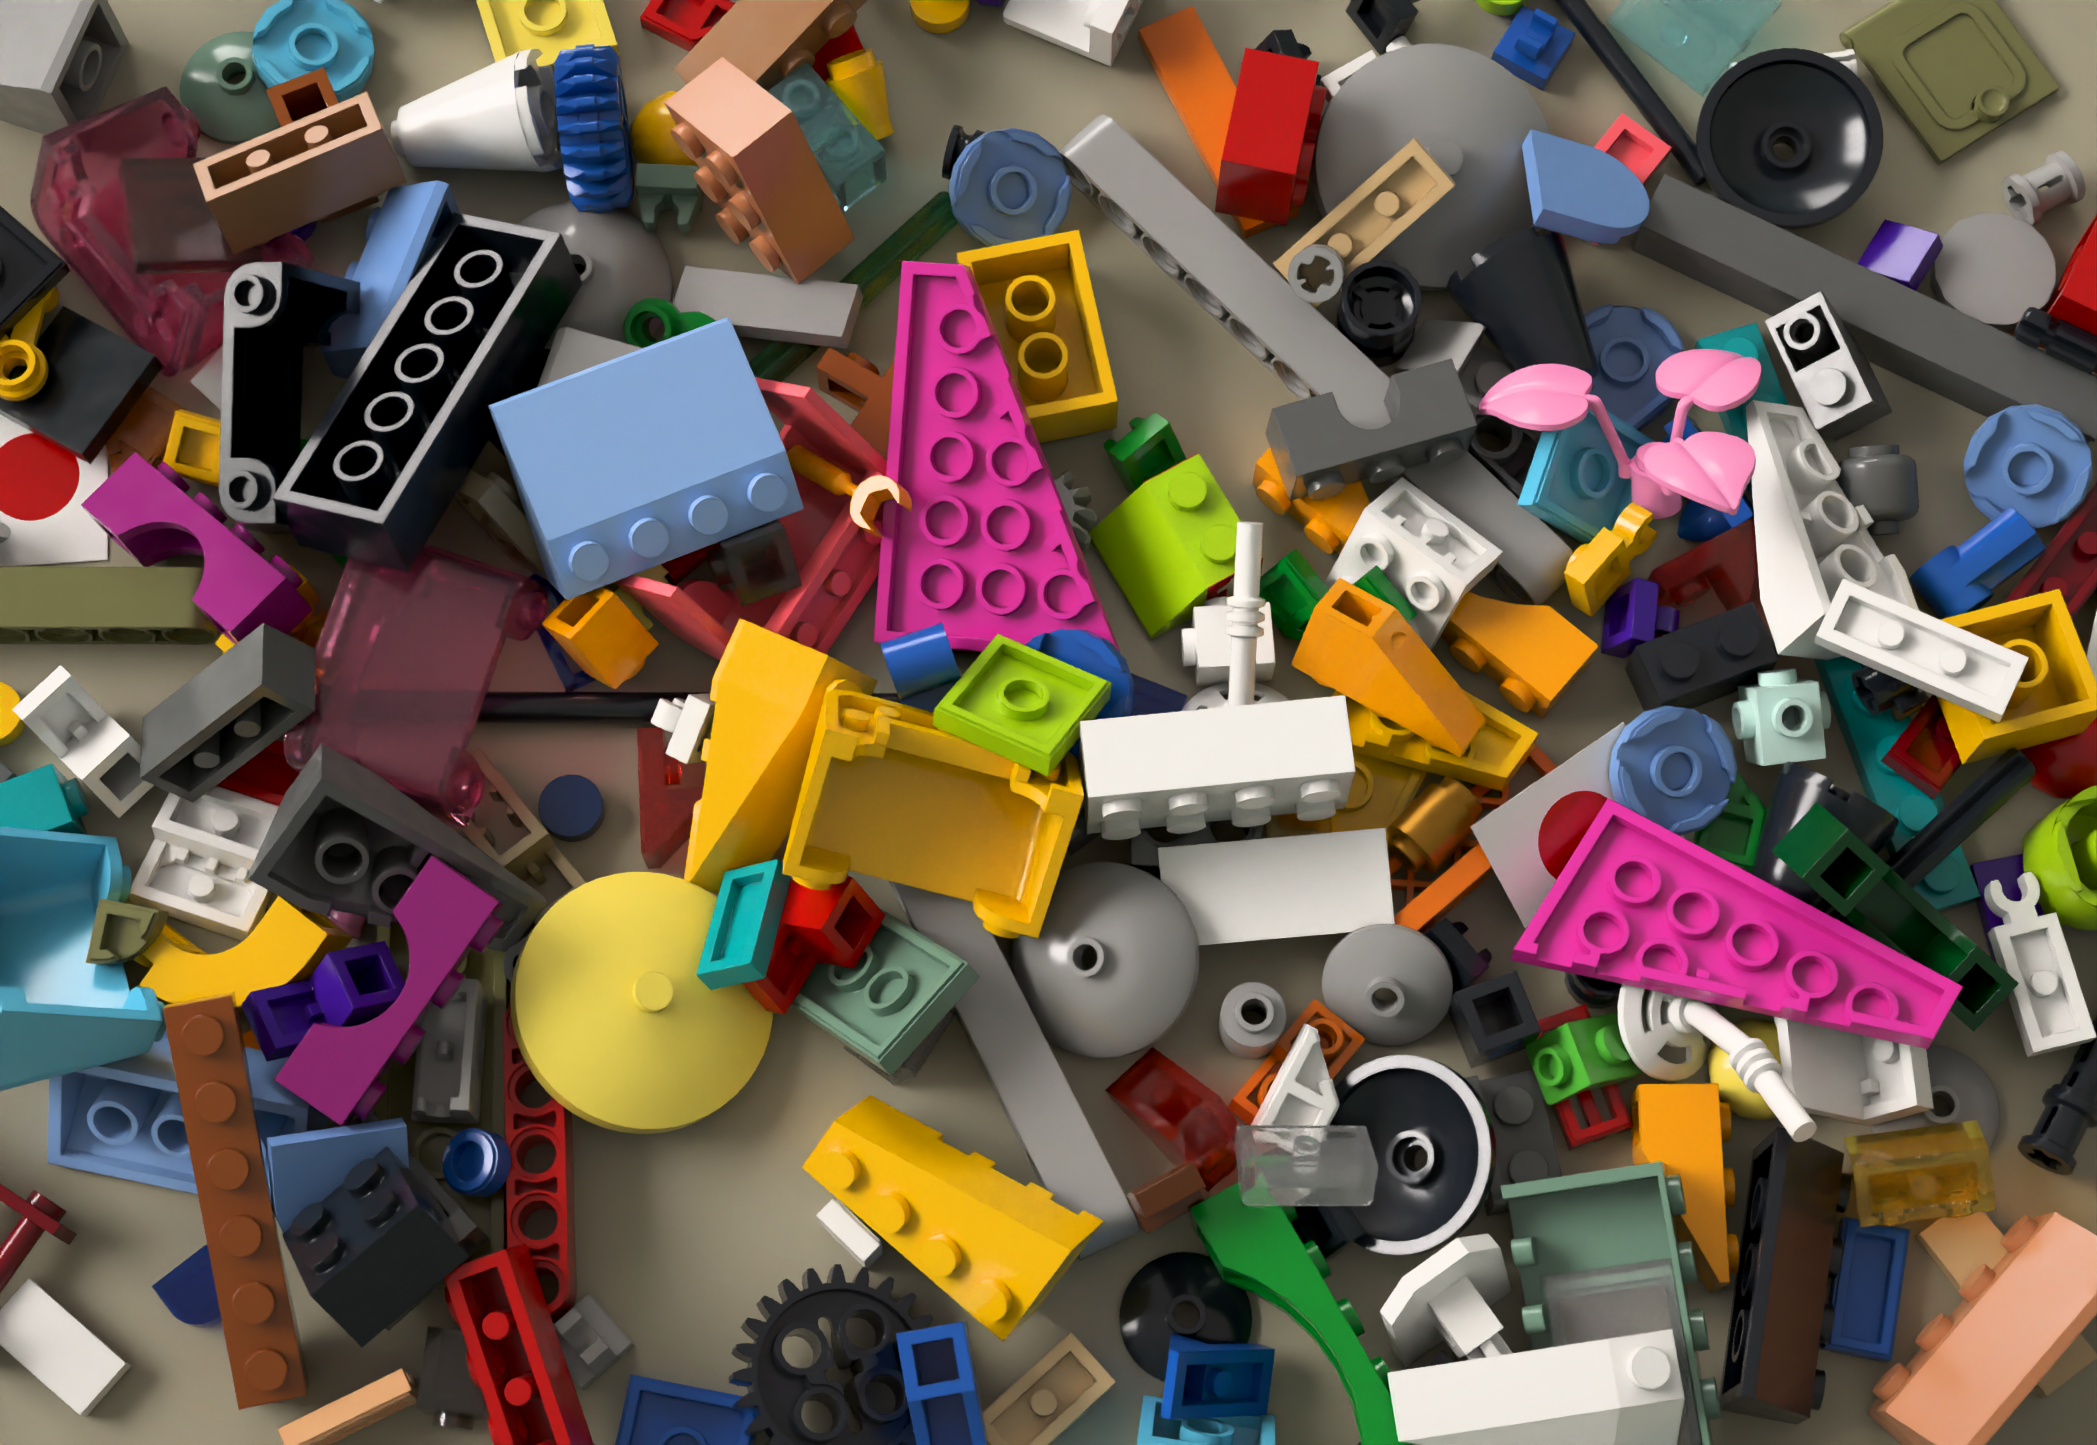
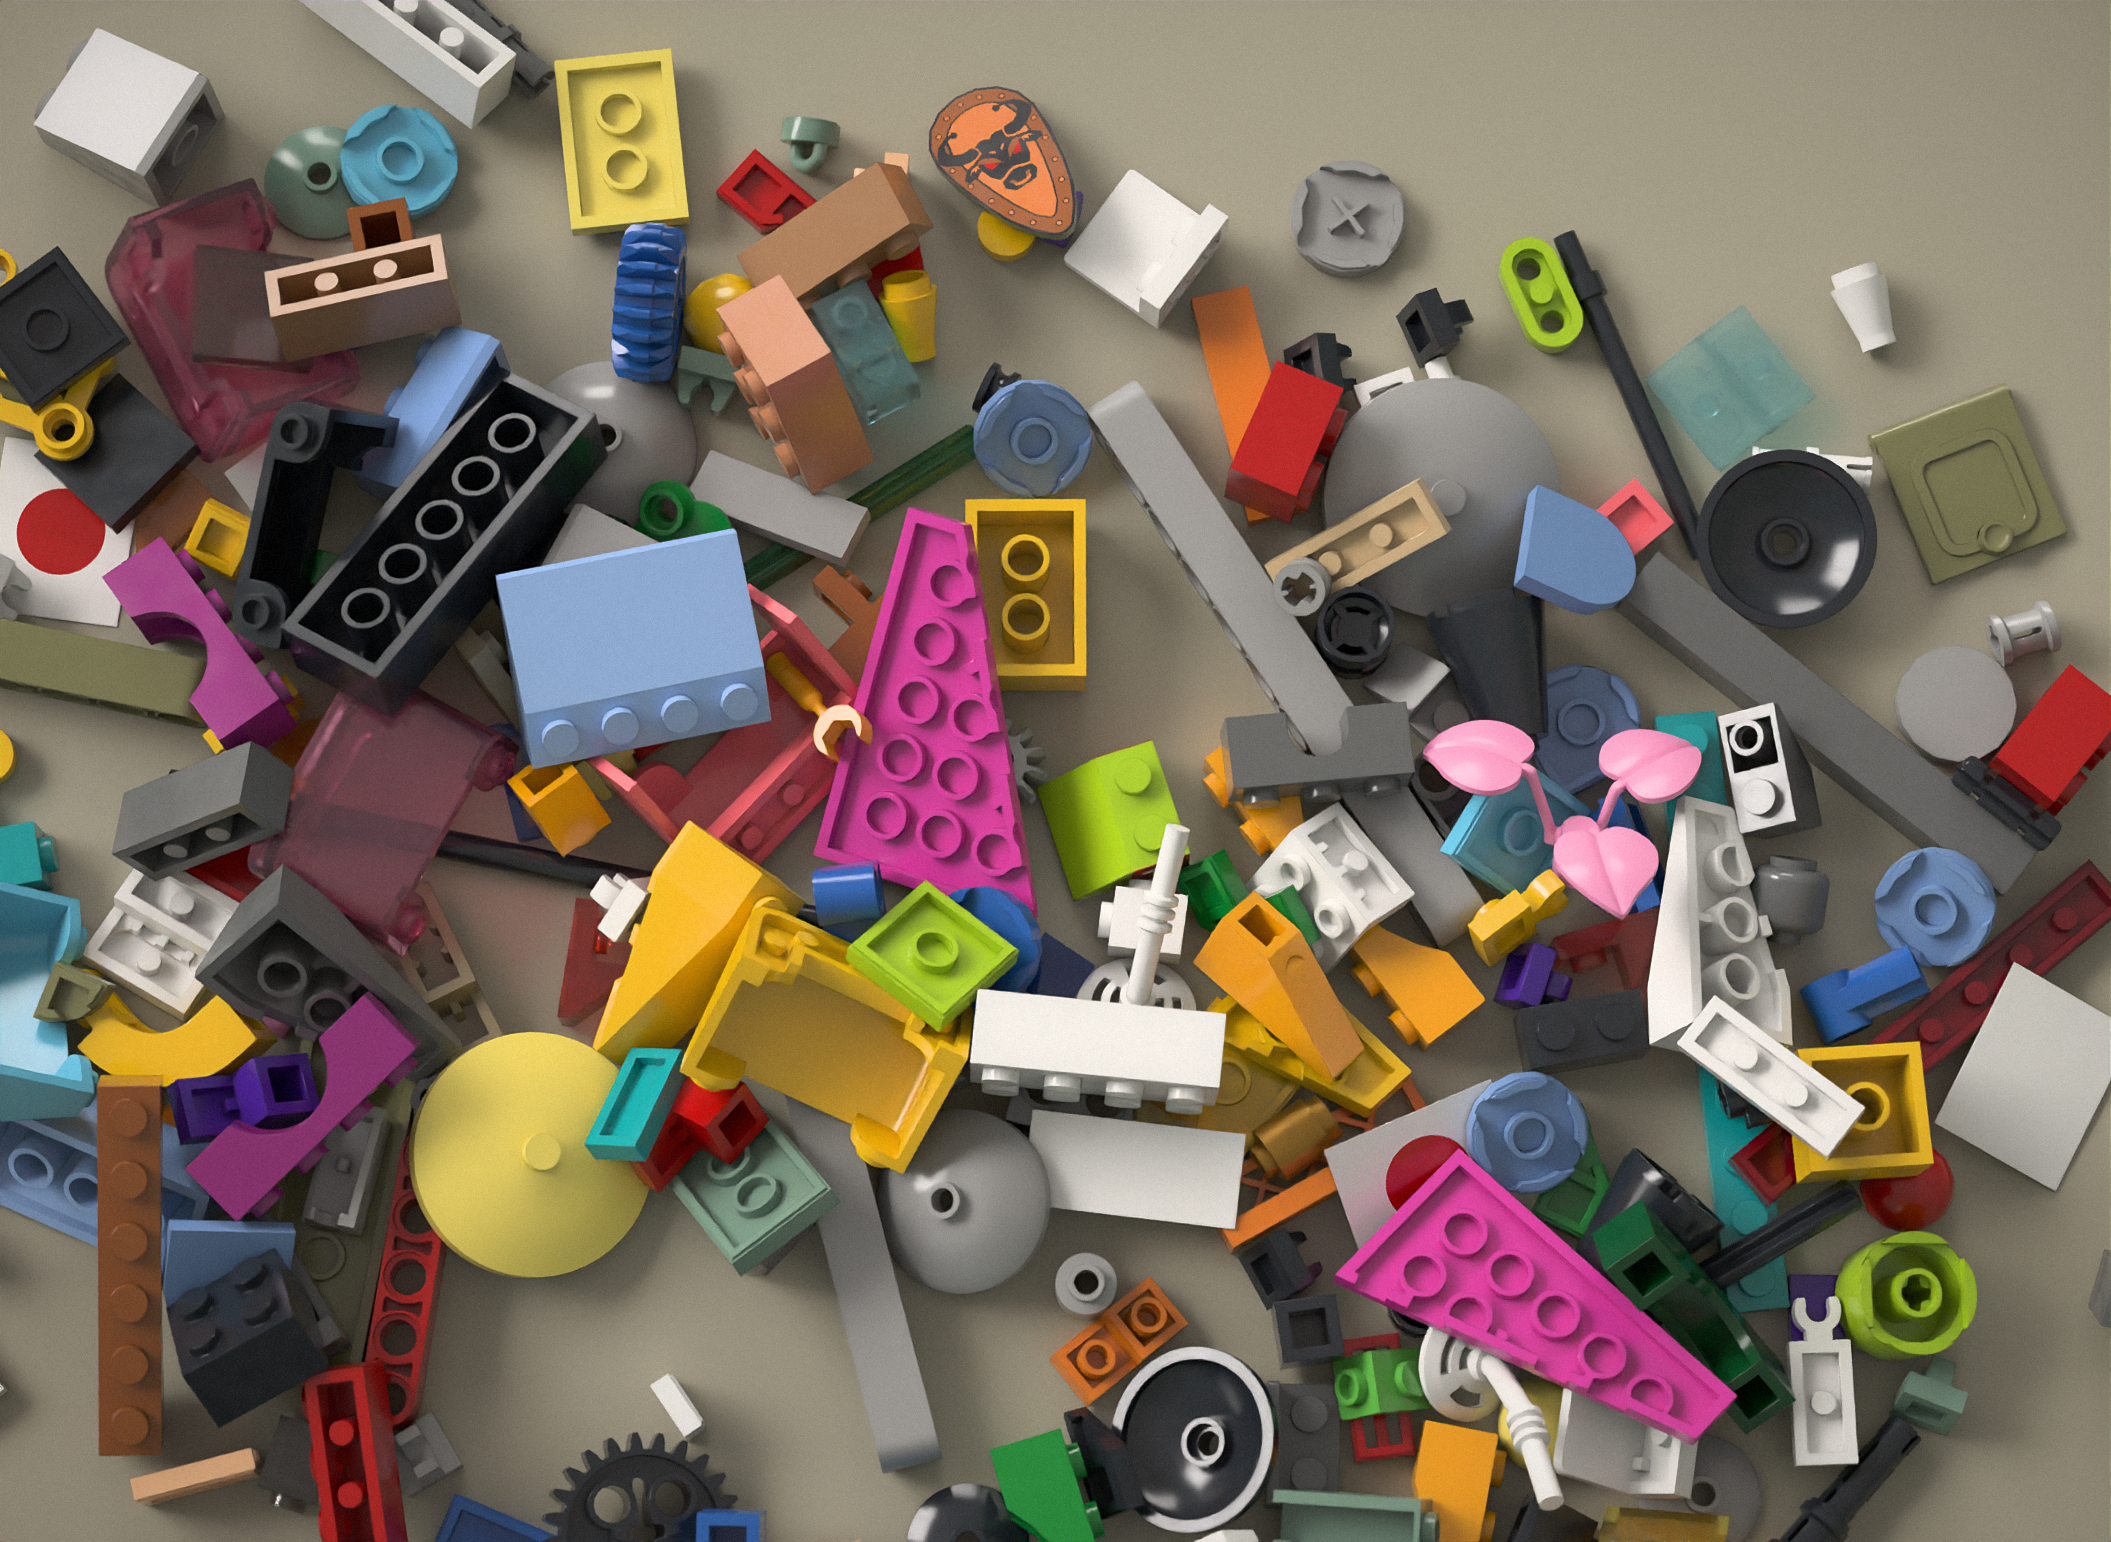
camera: 10 degrees right, 5 degrees up
(85, 740) = (68, 804): white brick -> none
(191, 1291) = (75, 1334): clear blue tile -> none
(476, 1162) = (352, 1274): blue tile -> none
(485, 120) = (548, 271): white cone -> none
(571, 808) = (502, 955): dark blue tile -> none
(755, 563) = (716, 763): clear smoke brick -> none
(951, 1213) = (772, 1408): yellow wedge -> none
(1144, 451) = (1106, 723): green tile -> none
(1166, 1196) = (970, 1435): reddish brown slope -> none
(1178, 1115) = (1002, 1362): clear red slope -> none
(1302, 1089) = (1111, 1370): white tile -> none
(1305, 1165) = (1102, 1432): clear slope -> none
(1391, 959) = (1223, 1258): light grey dish -> none
(1533, 46) = (1567, 391): blue tile -> none
(1781, 718) = (1648, 1122): light aqua brick -> none
(1902, 253) = (1867, 673): tile -> none

